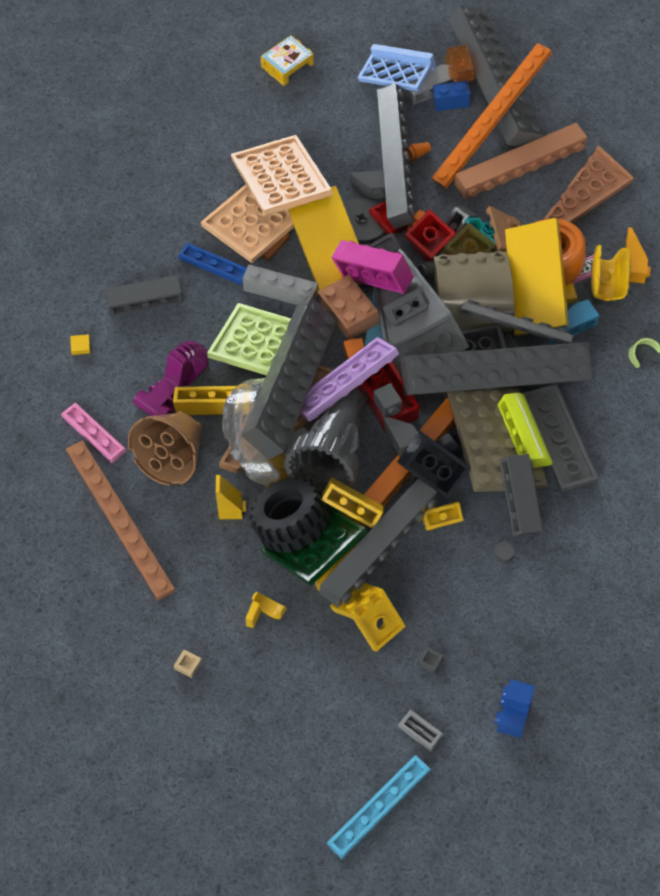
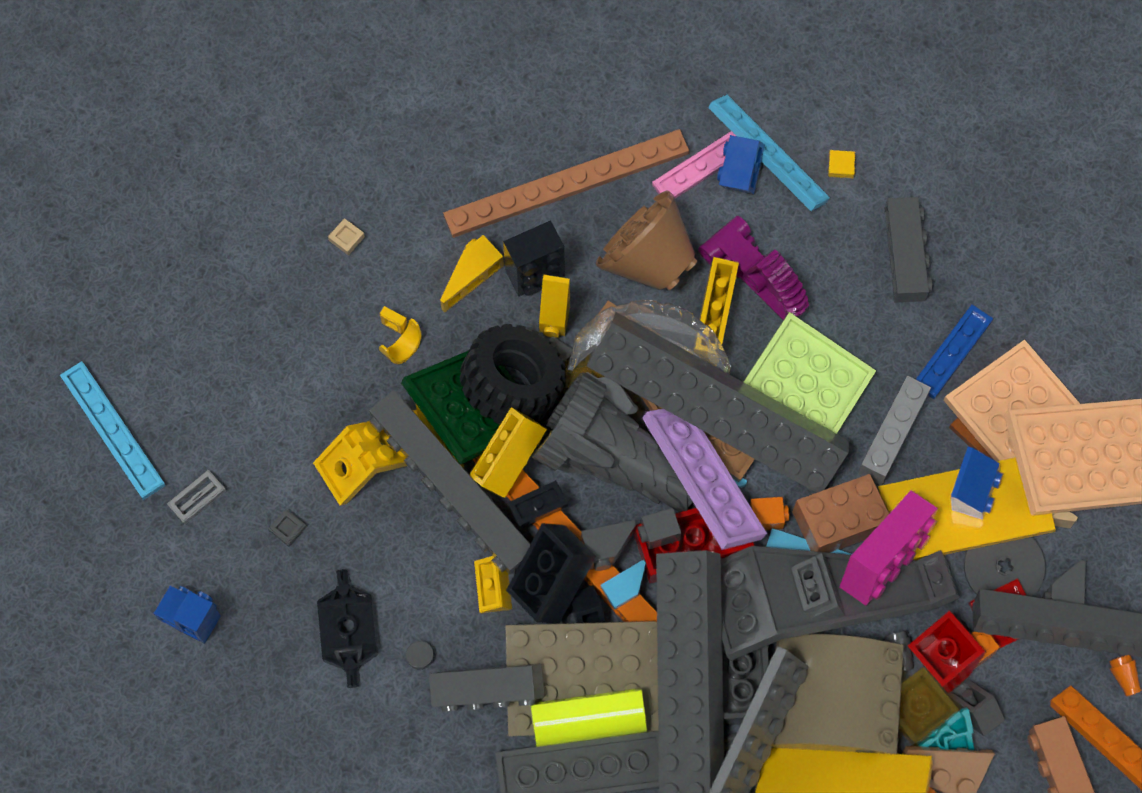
camera: 100 degrees right, 10 degrees up
(77, 389) = (773, 156): none -> medium azure tile
(93, 400) = (741, 164): none -> blue brick
(194, 515) = (533, 256): none -> black brick
(204, 569) = (475, 266): none -> yellow slope
(316, 229) = (975, 484): none -> blue slope
(383, 485) = (537, 504): none -> black plate
(428, 423) = (624, 585): none -> medium azure tile
(484, 611) = (353, 648): none -> black plate

